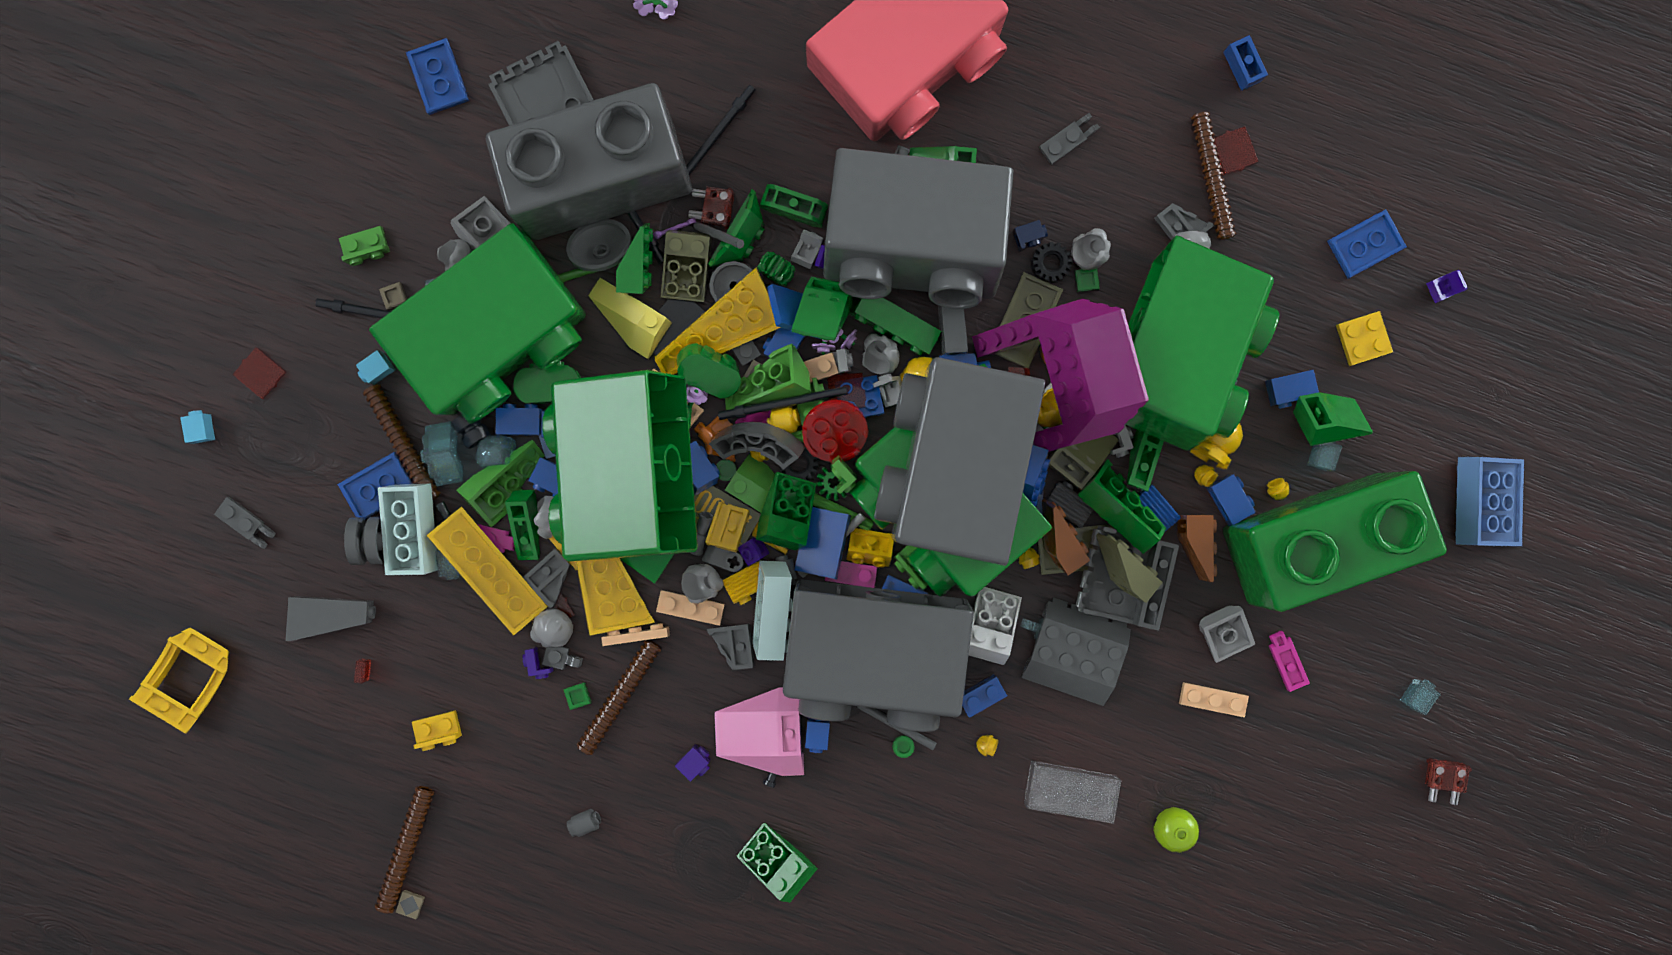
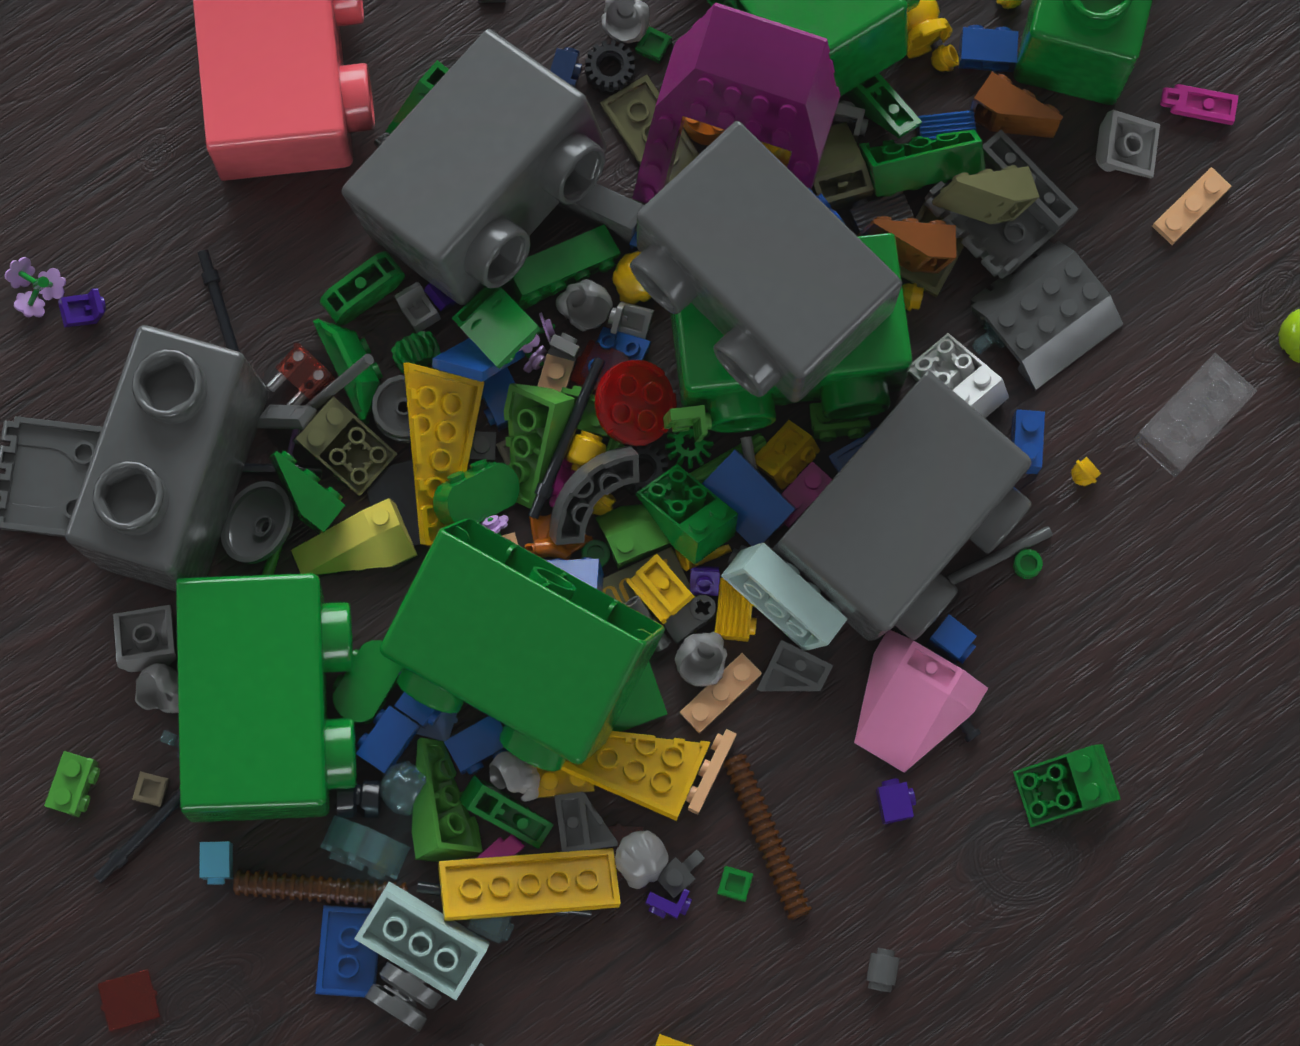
camera: 55 degrees left, 10 degrees down
(662, 37) = (82, 309): none -> dark purple bracket
(678, 216) = (286, 416): none -> dark grey tile

